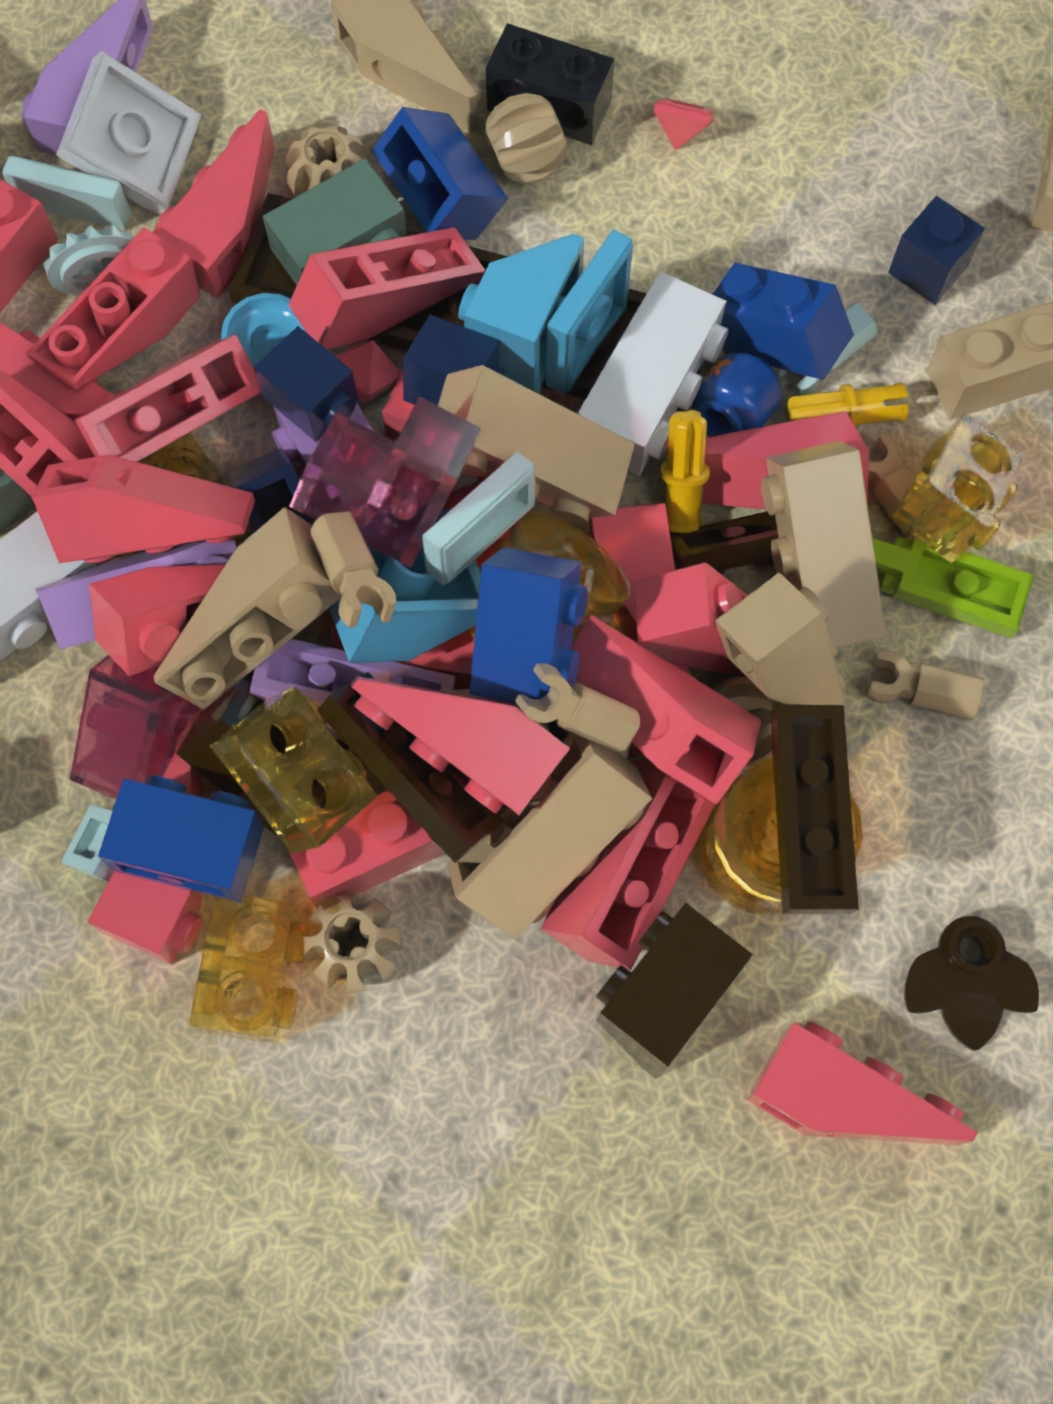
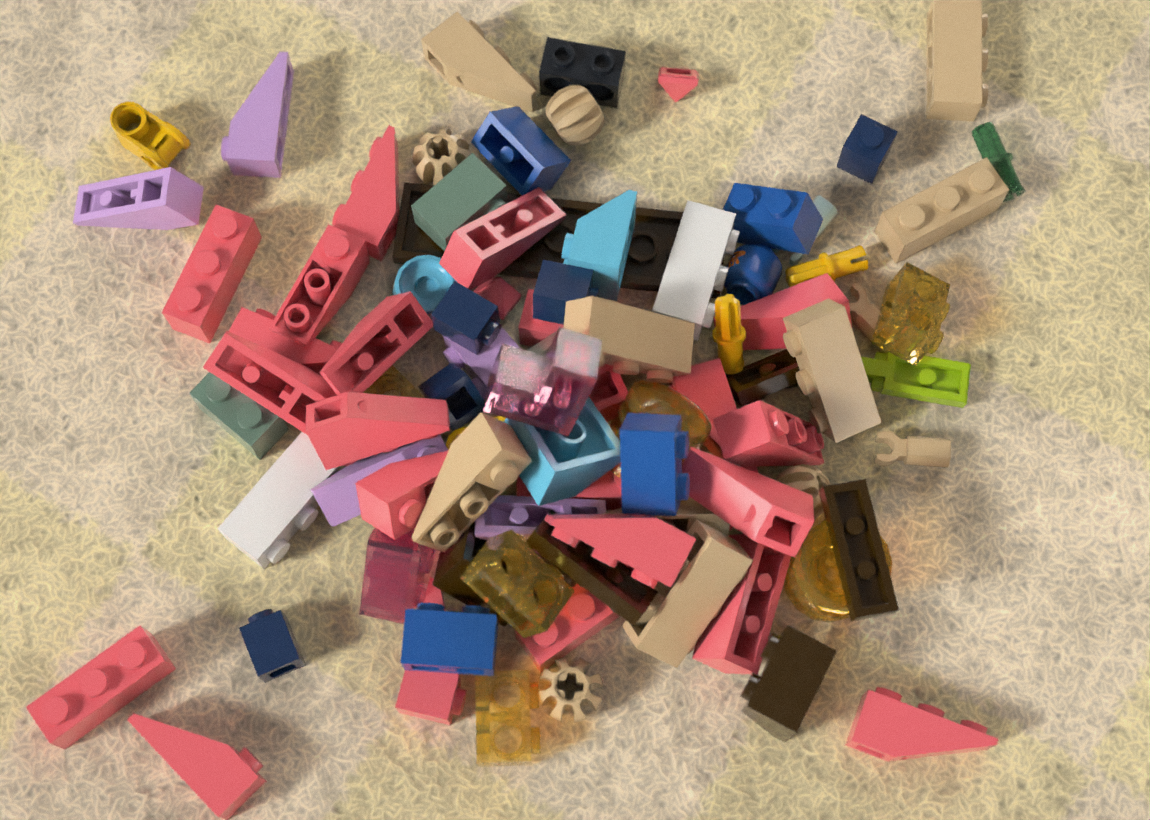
camera: 10 degrees left, 0 degrees up
(70, 192) = (266, 204): light aqua tile -> none
(73, 263) = (292, 252): light aqua gear -> none
(86, 844) = (385, 653): light aqua plate -> none
(129, 133) = (300, 156): white tile -> none
(351, 567) = (534, 446): tan bar -> none
(479, 519) = (608, 397): light aqua tile -> none
(581, 710) = (699, 512): tan bar -> none
(588, 313) = (646, 237): medium azure tile -> none
(784, 644) = (820, 445): tan slope -> none
(967, 991) = (976, 649): dark brown plate -> none

